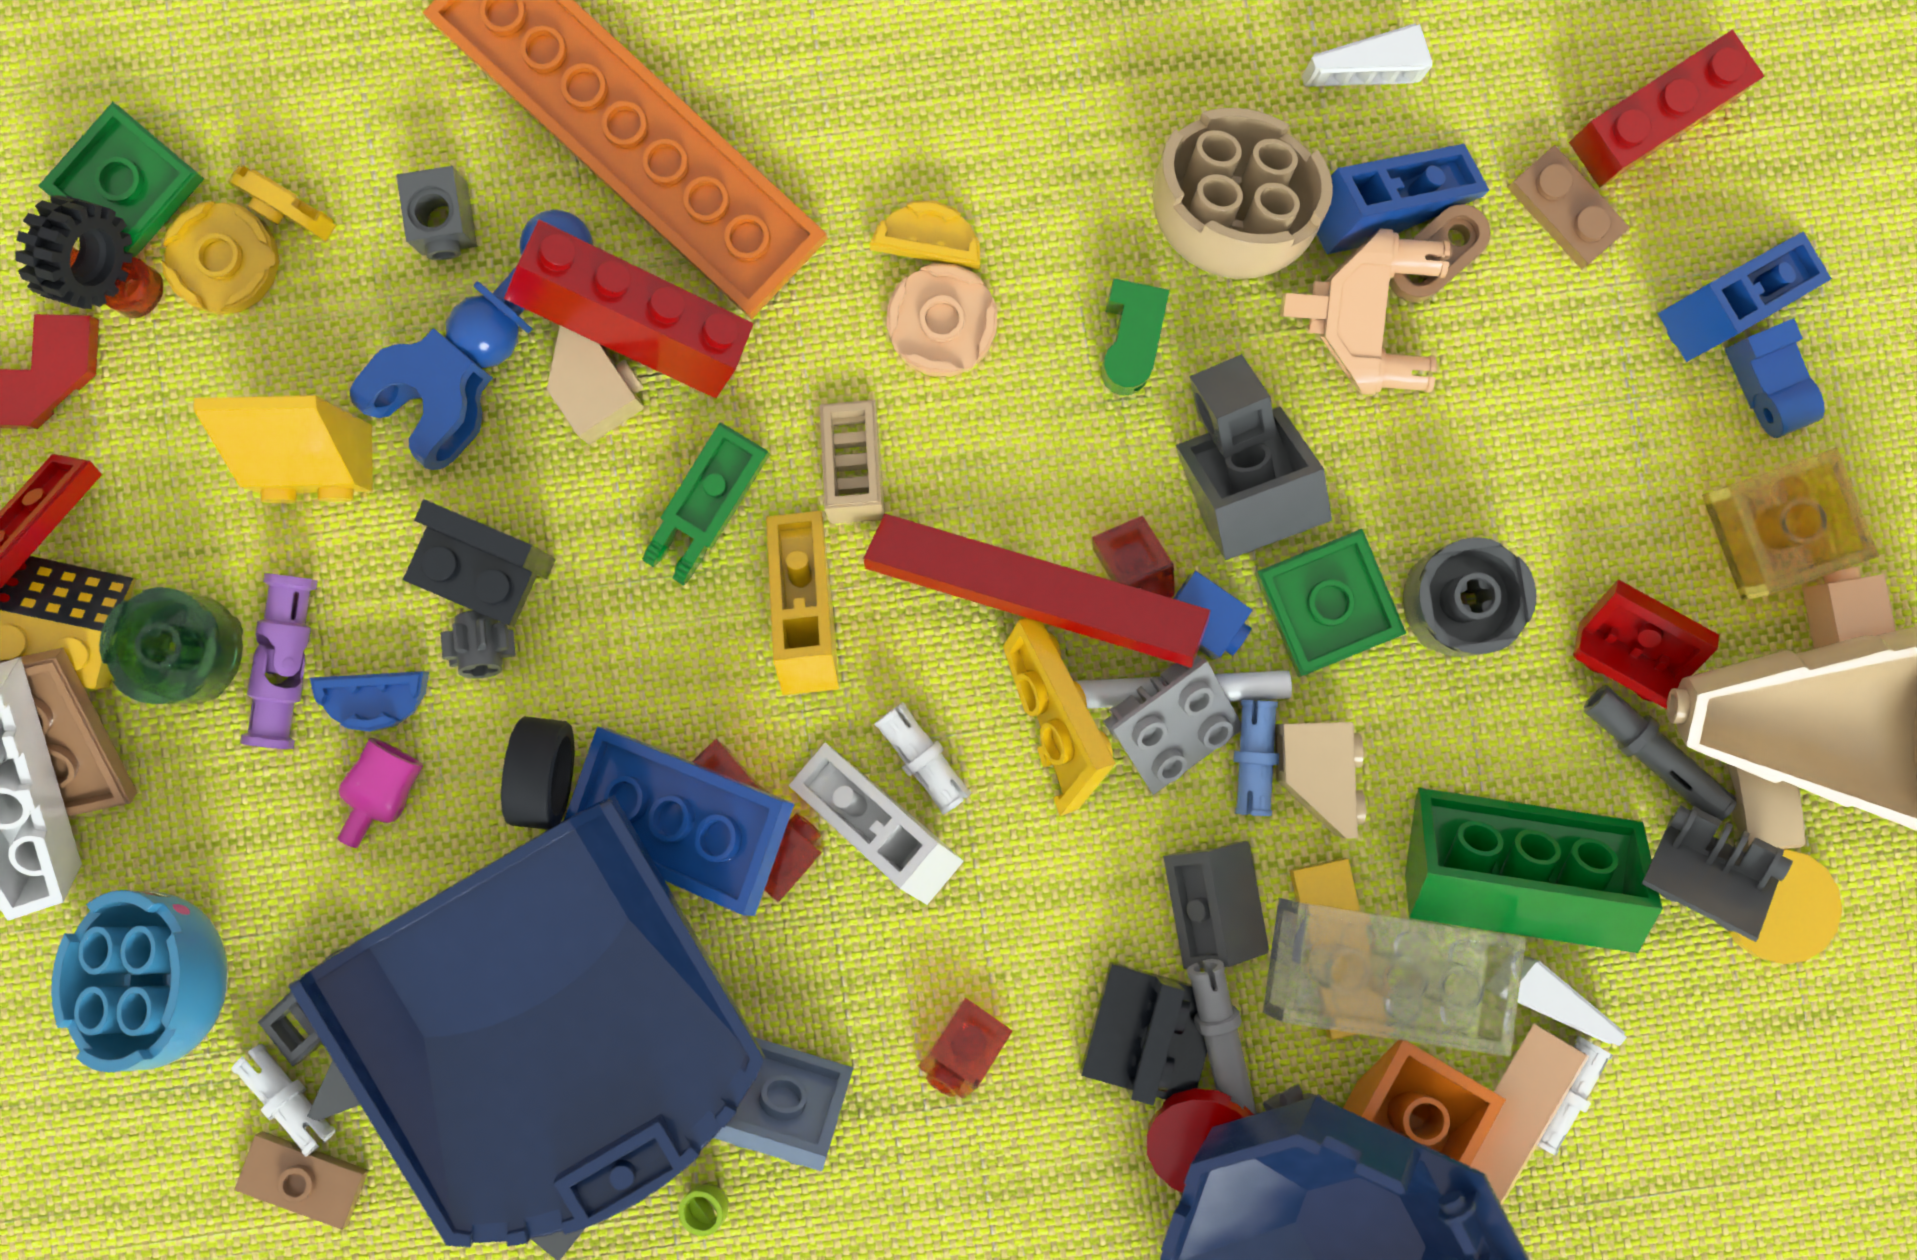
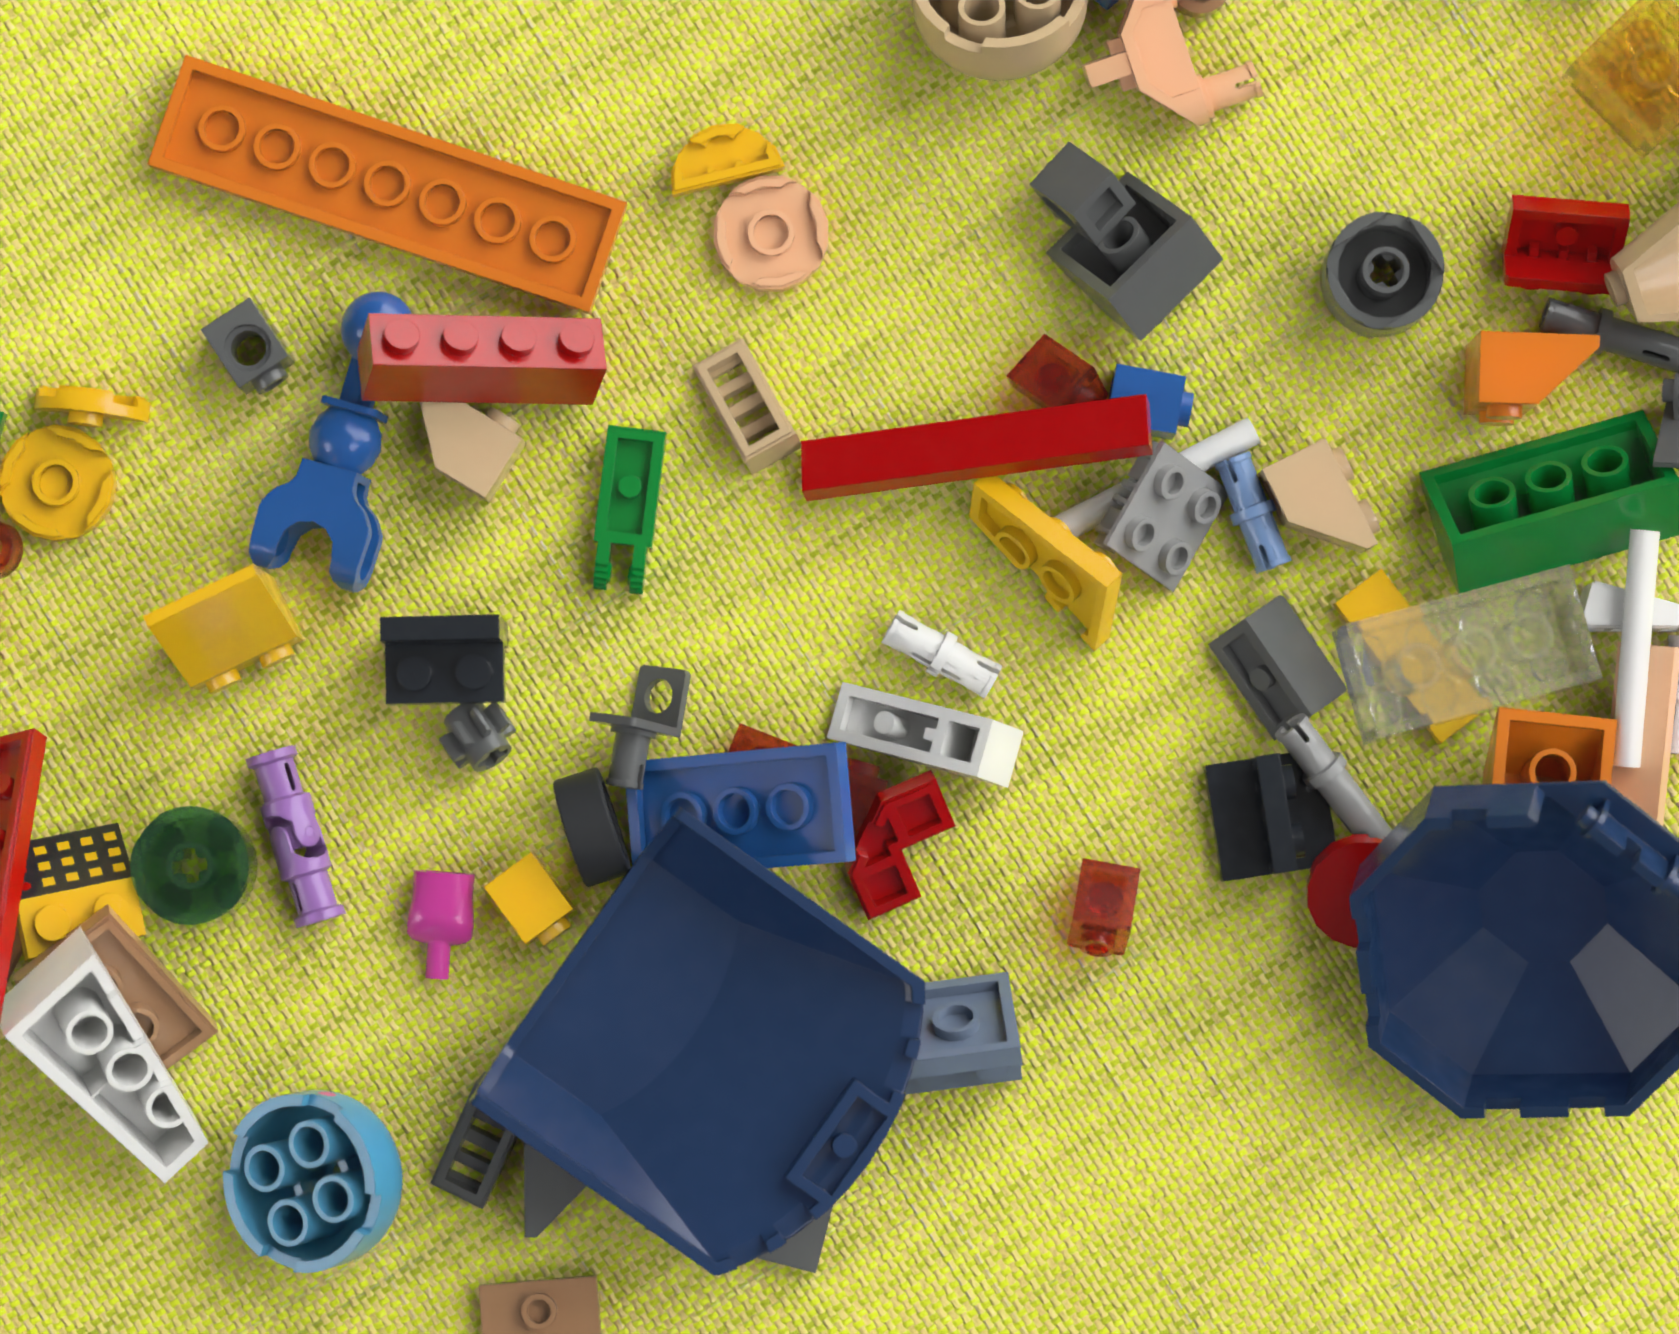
camera: 20 degrees left, 0 degrees up
(282, 1099) = (490, 1241): white pin -> none
(370, 700) = (398, 834): blue plate -> none
(459, 812) = (531, 900): none -> yellow brick
(615, 707) = (635, 732): none -> dark grey bracket
(696, 1212) = (923, 1172): lime hinge -> none
(801, 604) = (762, 559): yellow slope -> none
(808, 892) = (894, 822): none -> red tile
(1137, 336) = (967, 186): green leg -> none
(1330, 603) = (1257, 336): green plate -> none
(1553, 1037) = (1635, 646): none -> white piece
(1555, 741) = (1517, 370): none -> orange slope

